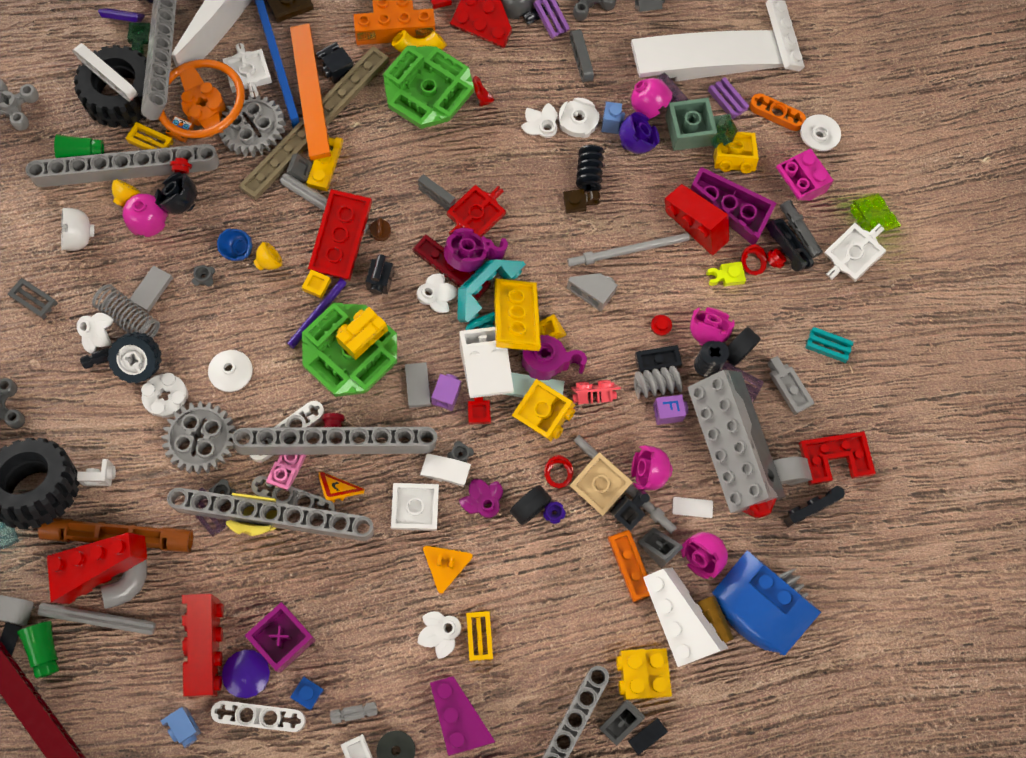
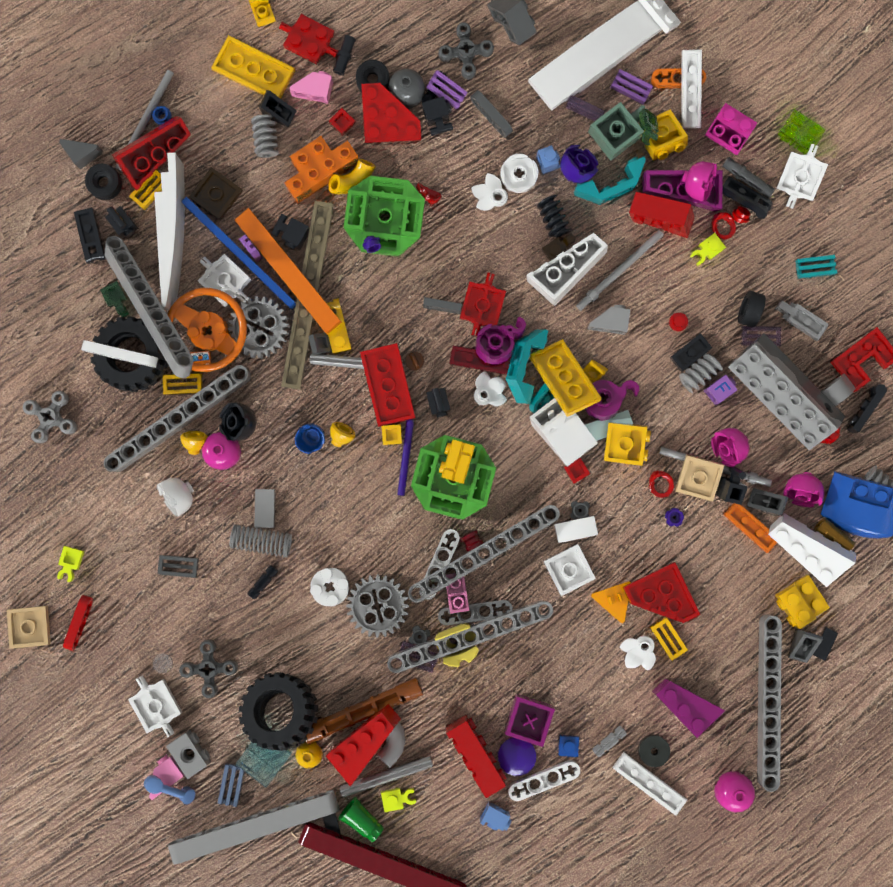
camera: 25 degrees left, 15 degrees up
(33, 552) = (308, 755): none -> yellow brick
(76, 146) = (132, 424): green plant -> none
(91, 648) = (394, 799): none -> neon yellow plate
(94, 477) = (318, 678): white bracket -> none
(95, 334) = (247, 568): white plate -> none
(121, 15) = (87, 285): dark purple tile -> none
(134, 357) = (291, 572): black wheel -> none
(180, 165) = (228, 397): red plate -> none
(203, 270) = (300, 470): dark grey plate -> none
(234, 379) = (376, 542): white dish -> none
(287, 53) = (250, 248): none -> medium lavender tile
(337, 488) = (503, 588): piece -> none
(400, 101) = (372, 244): none -> dark purple plate
(417, 385) = (517, 473): light grey tile -> none
(446, 391) = (543, 467): medium lavender brick -> none
(481, 495) = (612, 534): magenta plate -> none
(499, 584) = (663, 594): none -> red plate
(530, 31) = (435, 113): none -> black brick
(530, 505) = (656, 524): black tyre -> none
(577, 219) = (562, 273): none -> white wedge
(604, 386) = (658, 404): coral hinge -> none
(650, 96) = (572, 126): dark pink cylinder -> none
(672, 177) = (590, 192): none -> teal slope
(692, 507) = (774, 456): white sticker -> none
(711, 325) = (720, 304): dark pink cylinder -> none
(711, 358) = (734, 332): black piece -> none
(748, 196) = (699, 180): none -> dark pink cylinder
(784, 125) = (691, 89): none -> white tile
(822, 126) = (727, 72): white dish -> none

